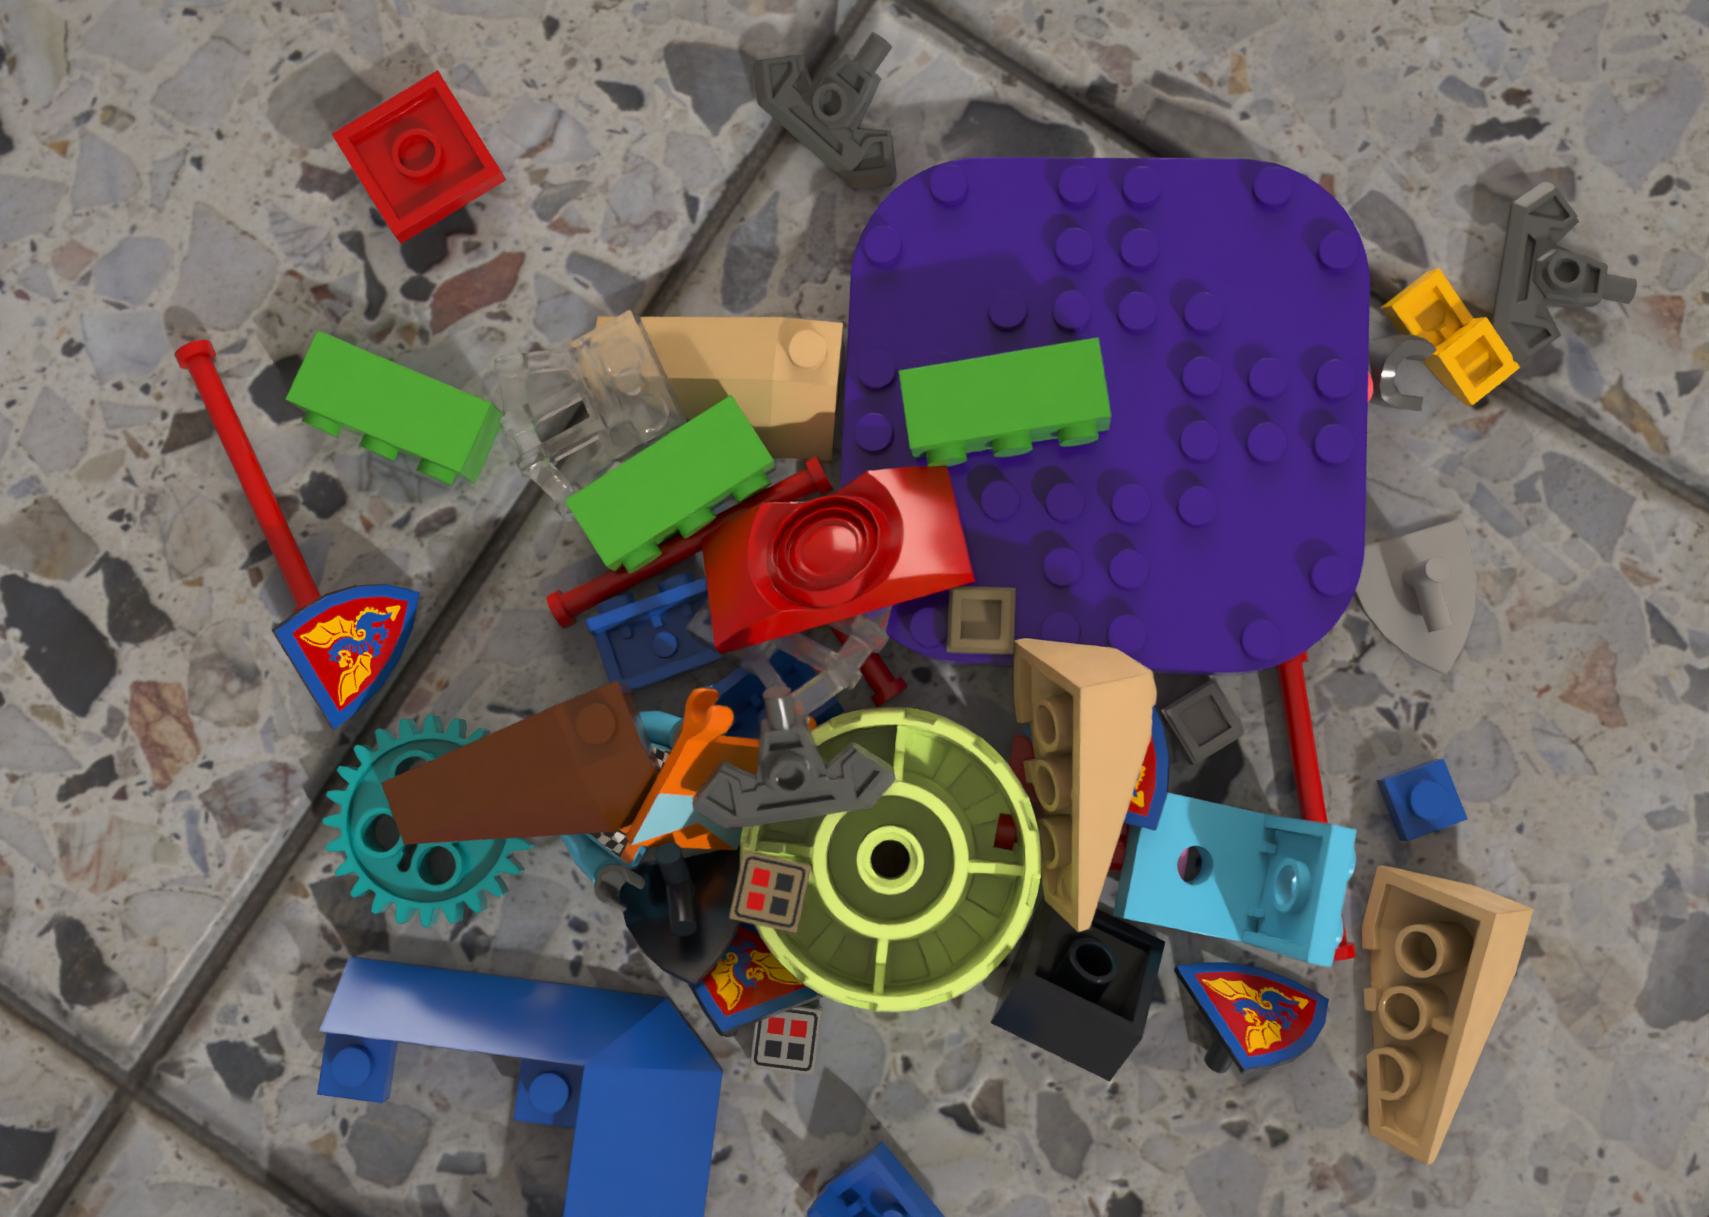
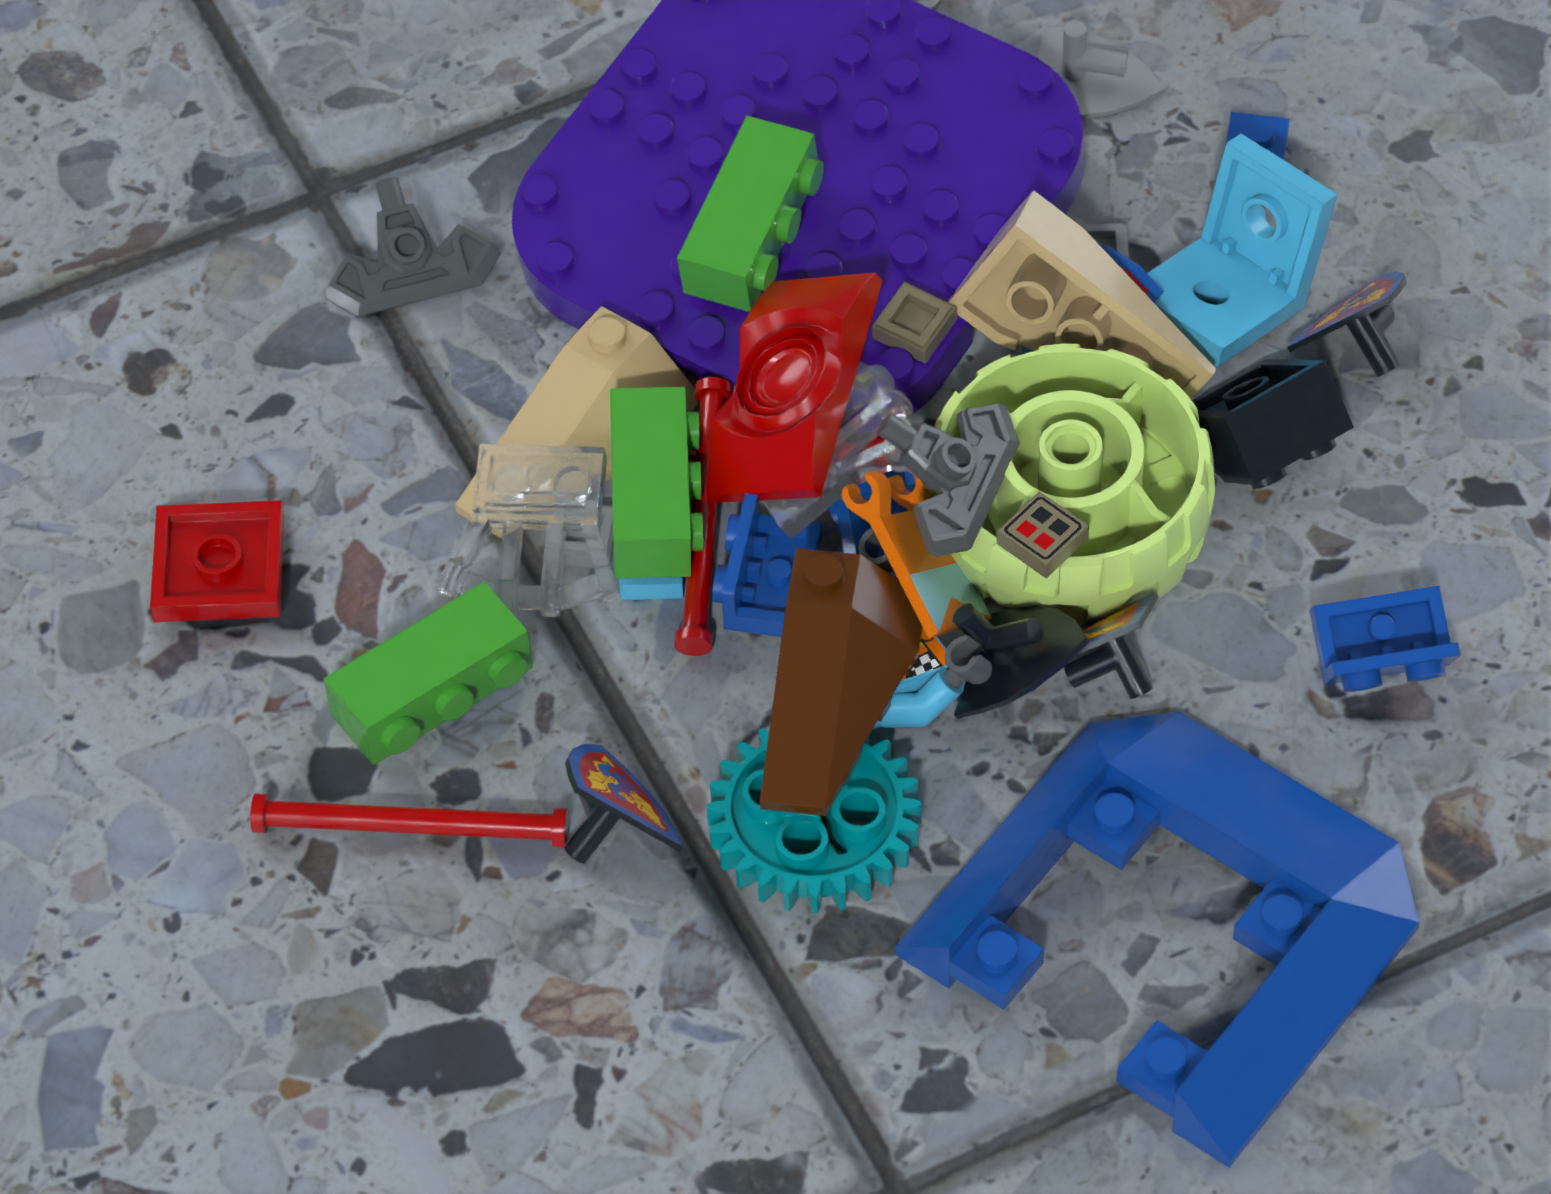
camera: 60 degrees left, 30 degrees down
(788, 1041) = (1178, 650): tile -> none
(1305, 758) = (1187, 204): red bar -> none
(1436, 986) = (1420, 202): tan wedge -> none

